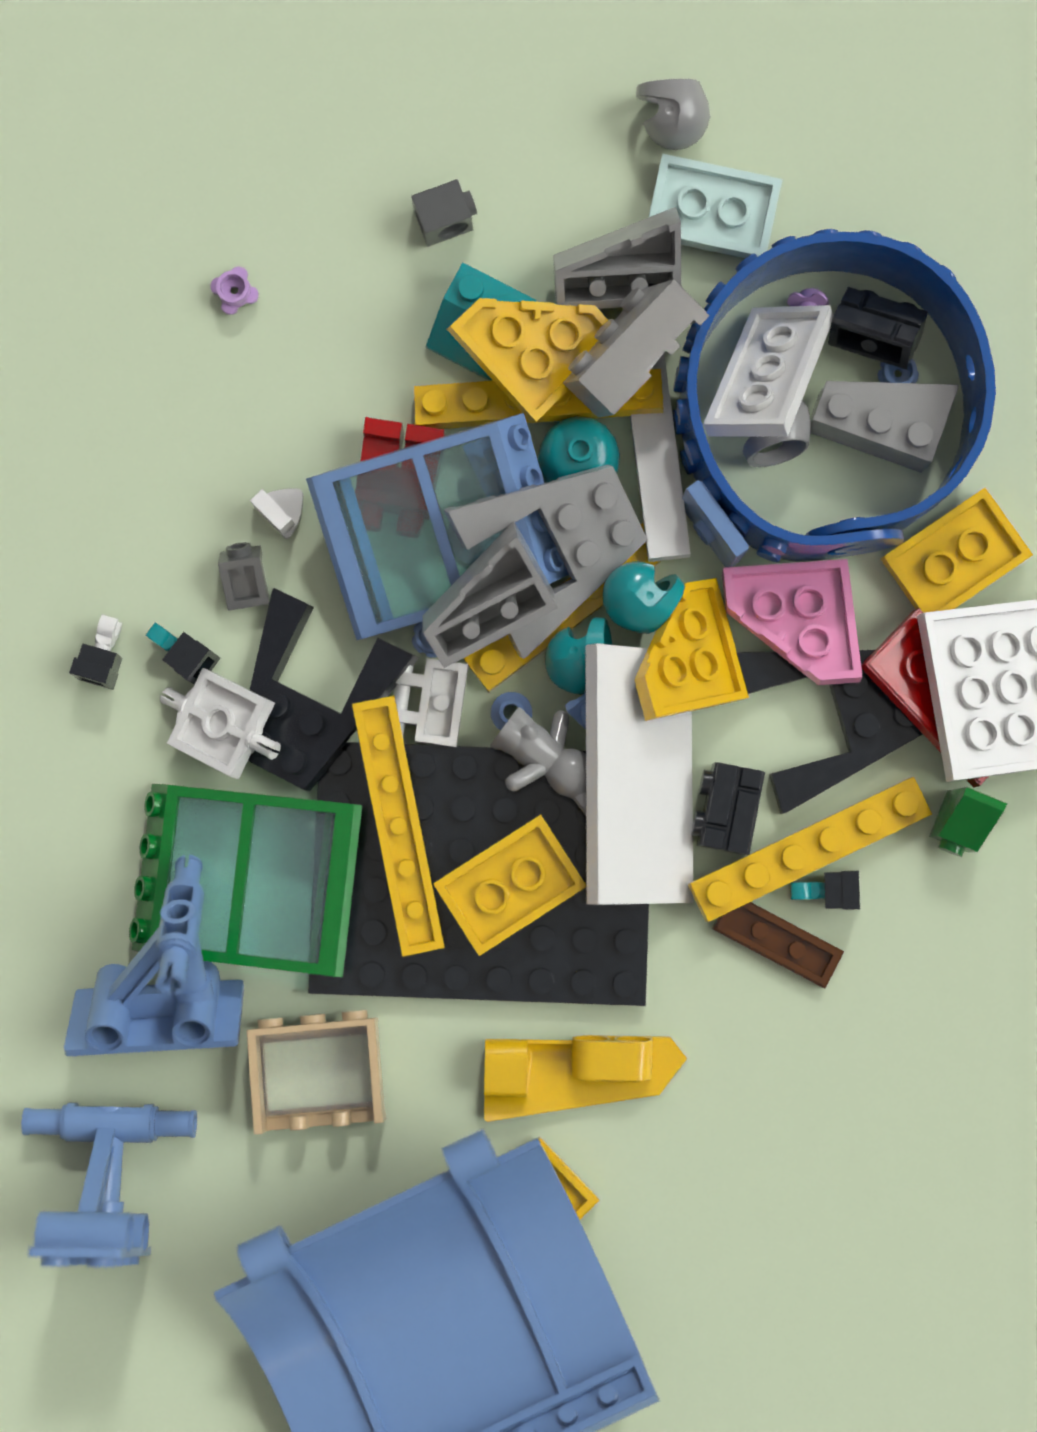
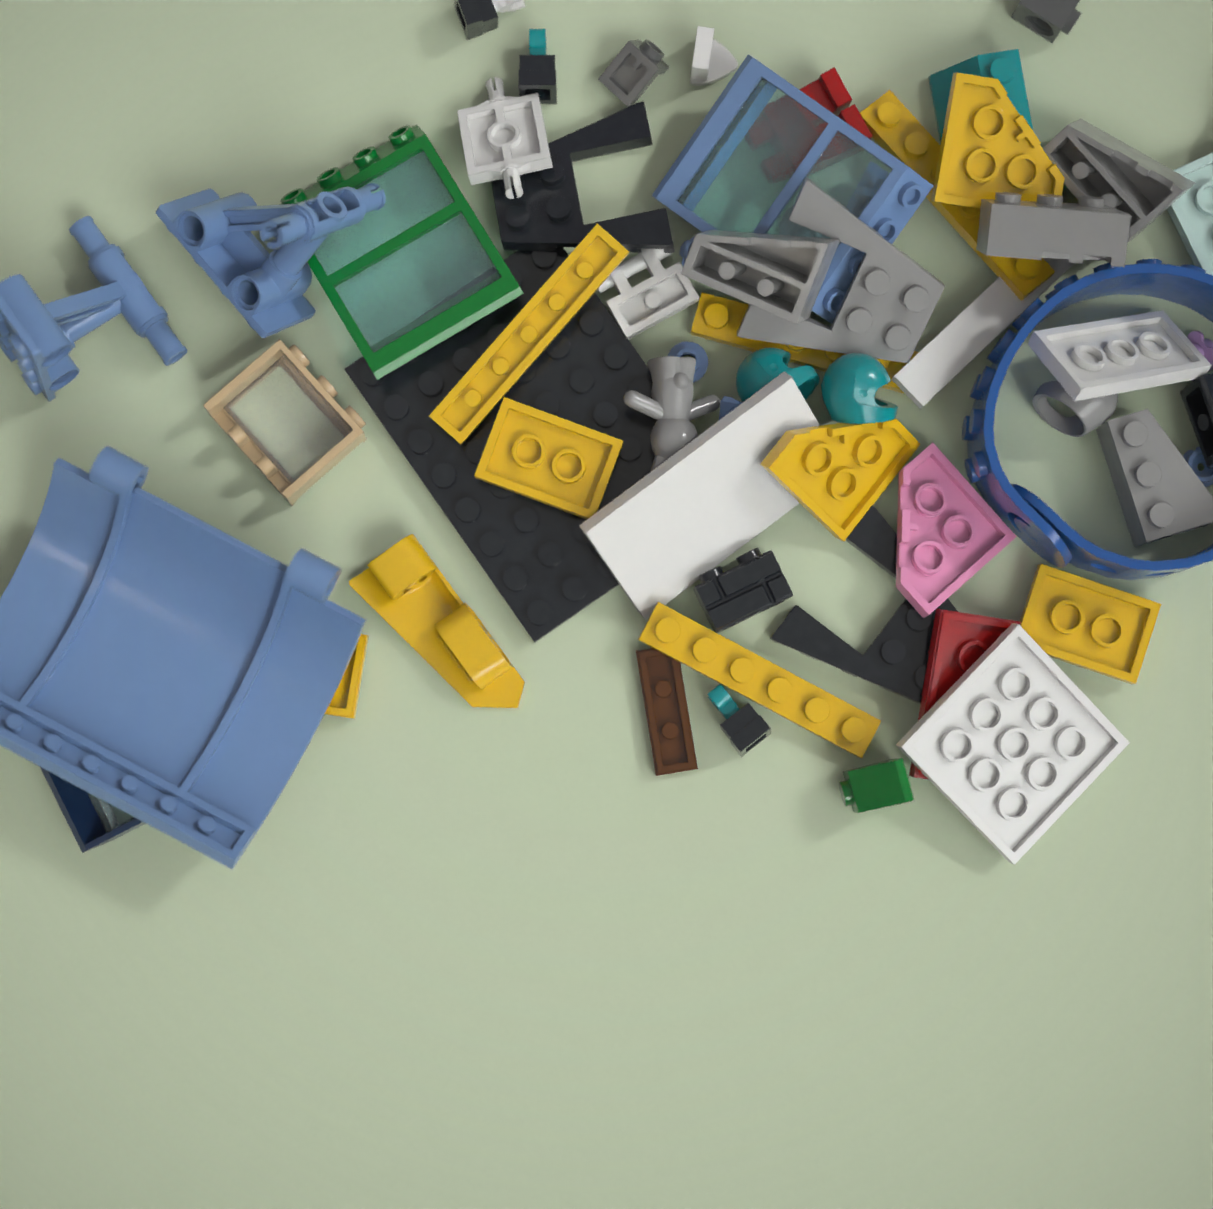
camera: 50 degrees right, 0 degrees up
(577, 446) = (943, 253): teal cylinder -> none
(713, 525) = (959, 405): medium blue plate -> none

